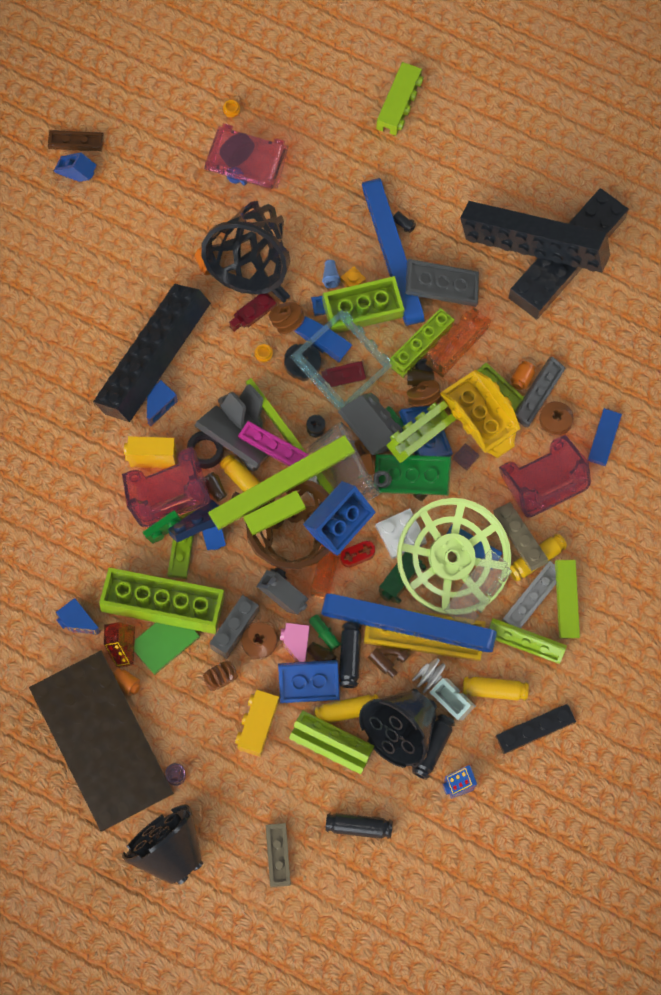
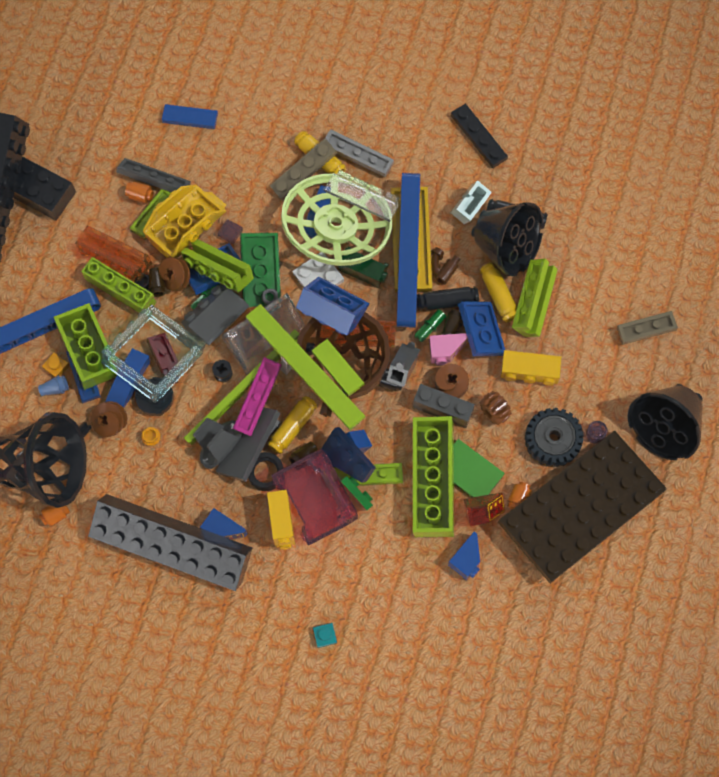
camera: 95 degrees left, 0 degrees up
(37, 477) = (325, 635): none -> teal plate
(179, 745) = (557, 423): none -> wheel
(252, 311) = (105, 456): dark red hinge -> none
(358, 825) = (603, 263): black axle -> none
(430, 674) = (452, 225): white piece -> none
(442, 282) = (50, 278): dark grey tile -> none
(459, 782) = (545, 183): blue slope -> none
(495, 688) = (451, 171): yellow axle -> none
(528, 641) = (401, 151): lime tile -> none
(549, 478) = (238, 156): clear pink windscreen -> none
(553, 425) = (186, 157): dark orange piece -> none
(567, 599) = (355, 123): lime tile -> none

